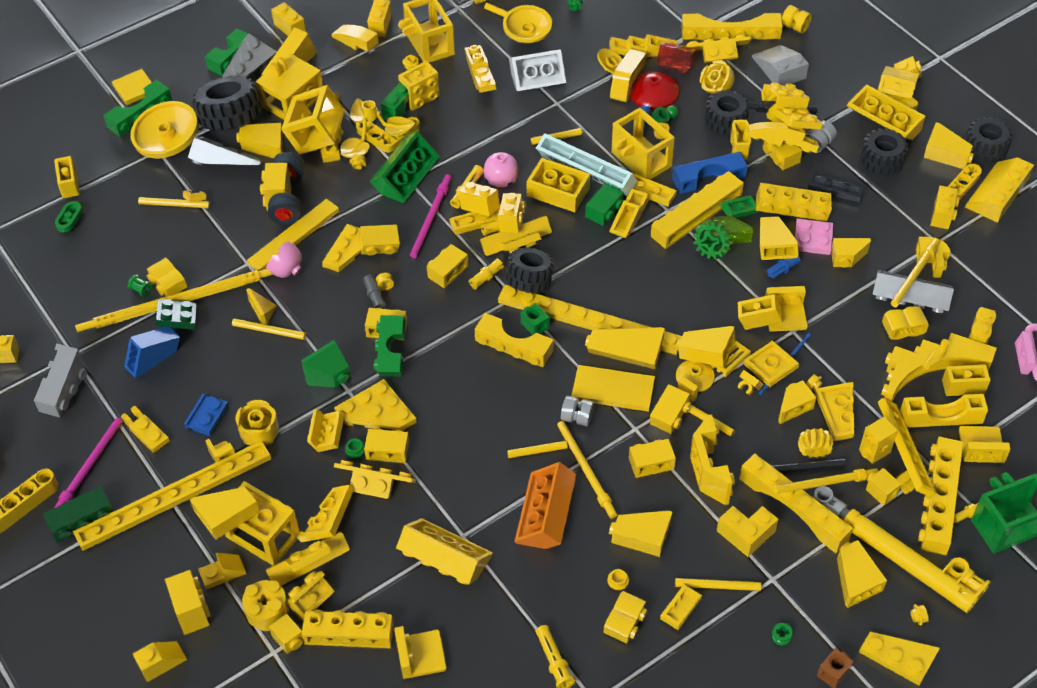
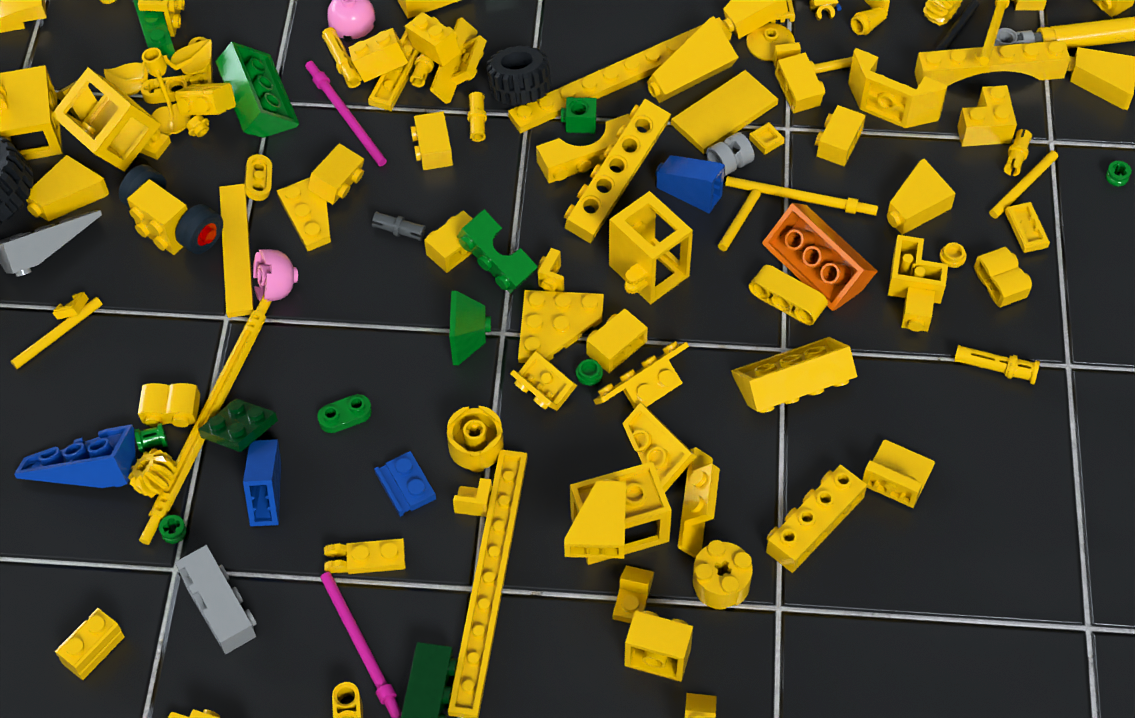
camera: 50 degrees left, 5 degrees up
(94, 330) = (164, 528): none -> green bush
(103, 272) = (90, 463): none -> blue wedge
(115, 300) = (152, 472): none -> yellow gear
(227, 356) = (345, 414): none -> green plate
(261, 306) = (307, 340): yellow slope -> none
(269, 329) = (344, 353): yellow bar -> none
(286, 634) = (774, 577): yellow brick -> none
(310, 594) = (745, 524): yellow bracket -> none
(346, 210) = (259, 179): none -> yellow plate
(372, 149) = (205, 99): none -> yellow brick
(384, 281) = (394, 206): yellow bush -> none
(407, 380) = (548, 270): none -> yellow bracket
(454, 399) = (635, 248): none -> yellow piece
(501, 510) = (788, 294): none -> yellow beam
(512, 366) = (587, 224): none -> yellow brick
(536, 405) = (692, 181): none -> blue slope
(553, 586) = (918, 309): none -> yellow brick
(574, 563) = (912, 271): none -> yellow brick
(614, 422) = (766, 138): none -> yellow tile
(738, 564) = (1018, 152): none -> yellow pin
(763, 413) = (867, 20): none -> yellow cone

